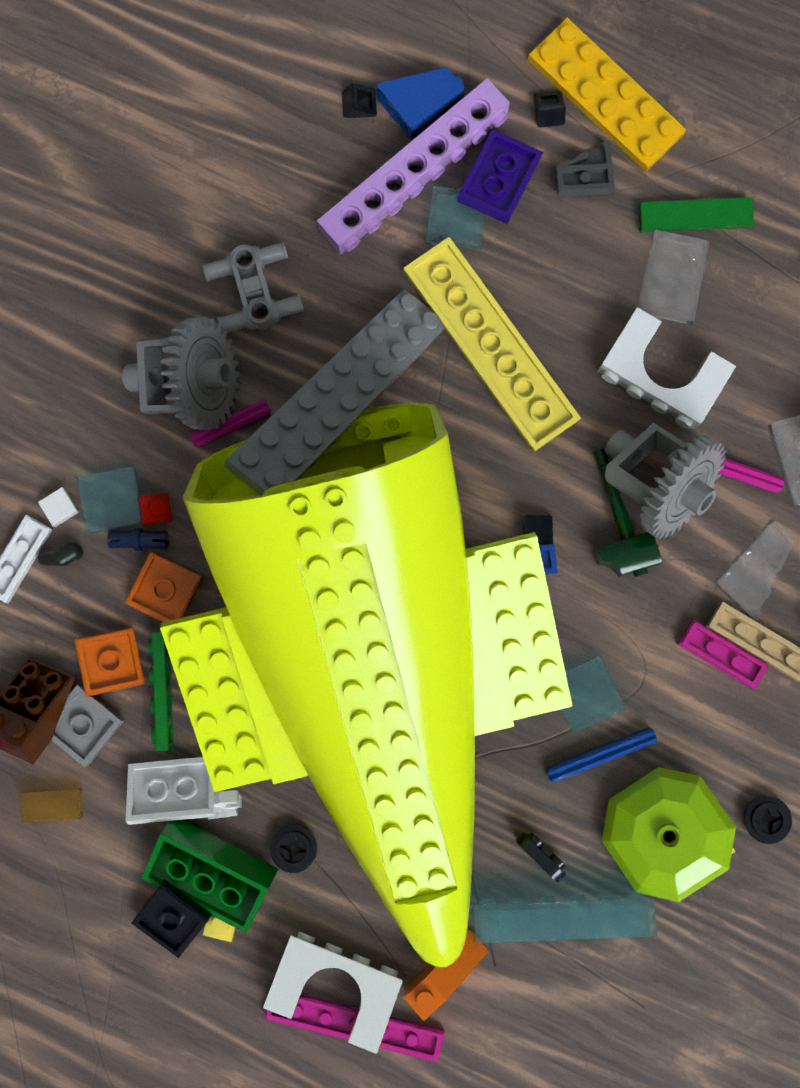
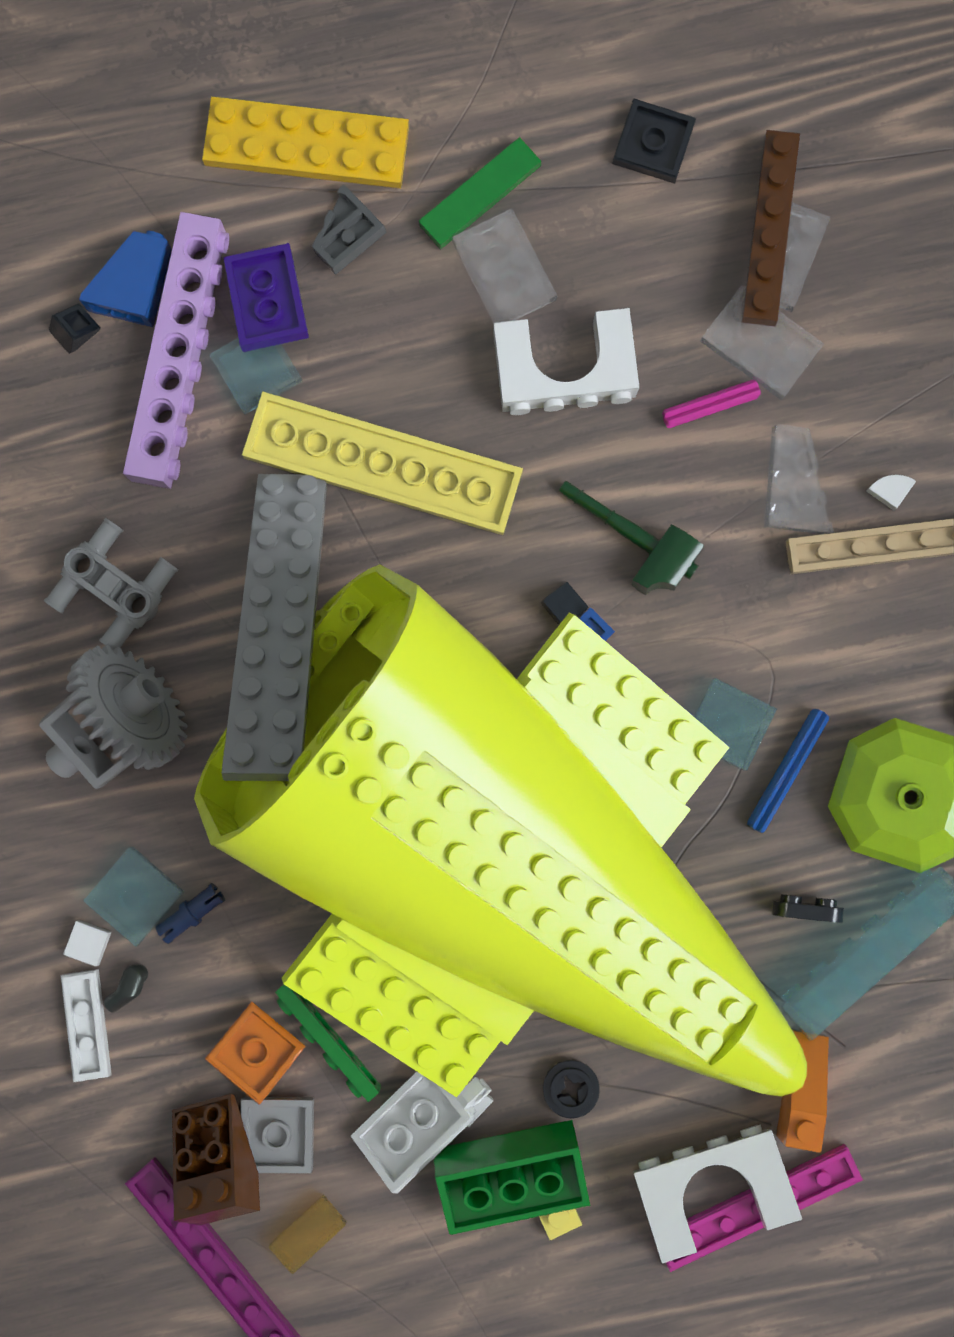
camera: 40 degrees left, 0 degrees up
(154, 509) = (183, 871): red plate -> none
(163, 589) = (253, 942): orange plate -> none
(171, 918) = (508, 1249): black tile -> none
(236, 421) = (195, 727): dark pink axle -> none
(549, 109) = (263, 196): black slope -> none
(682, 491) = (671, 458): light grey piece -> none
(723, 654) = (826, 588): dark pink tile -> none

